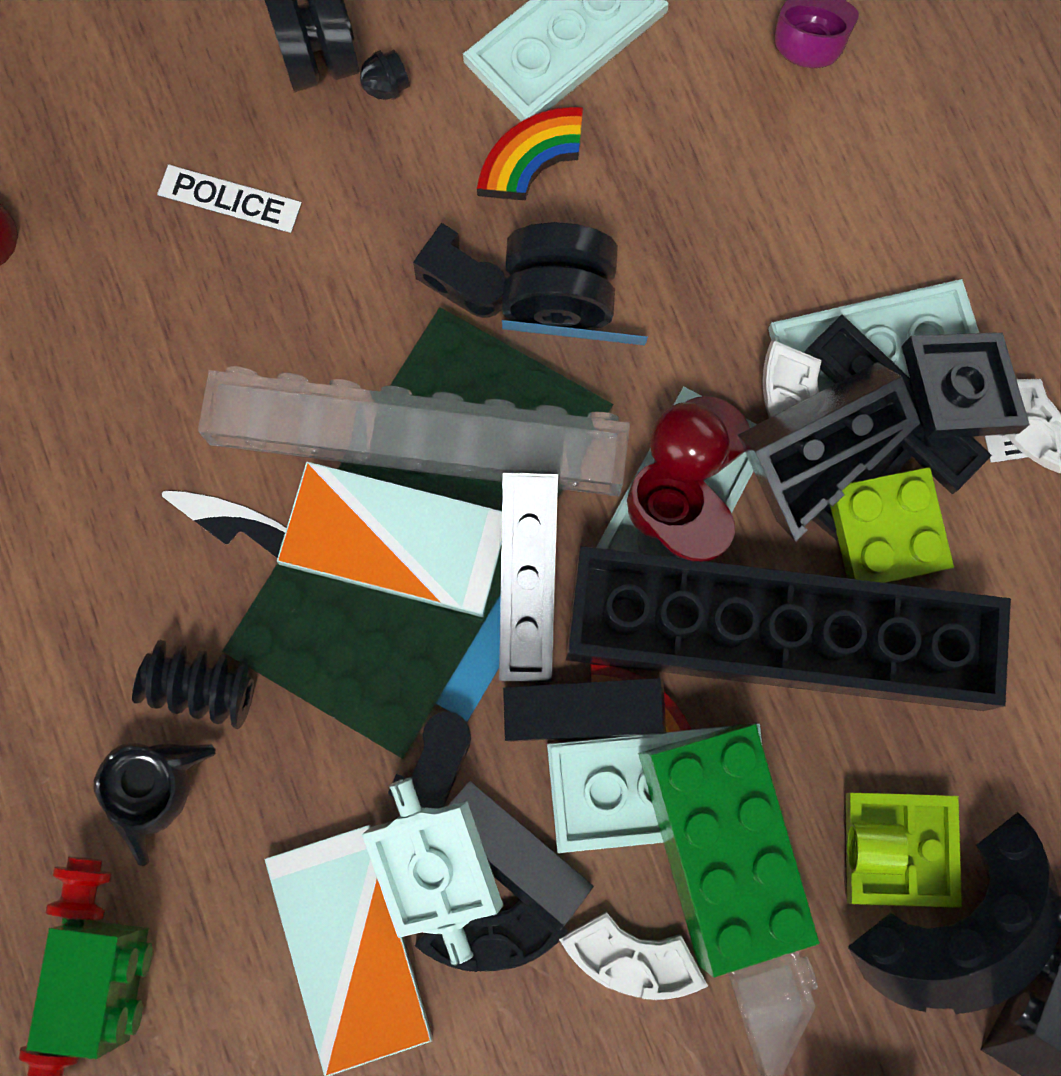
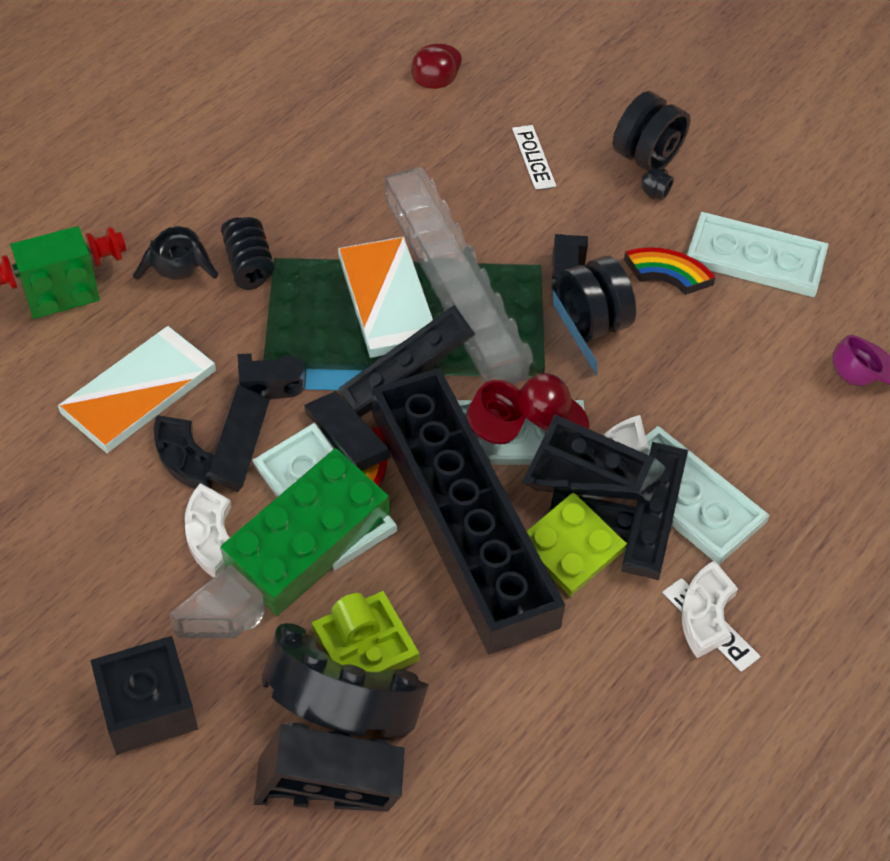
camera: 60 degrees right, 25 degrees down
(227, 519) = (349, 227): sticker -> none
(432, 870) = (205, 392): light aqua plate -> none
(964, 385) = (691, 529): black plate -> none

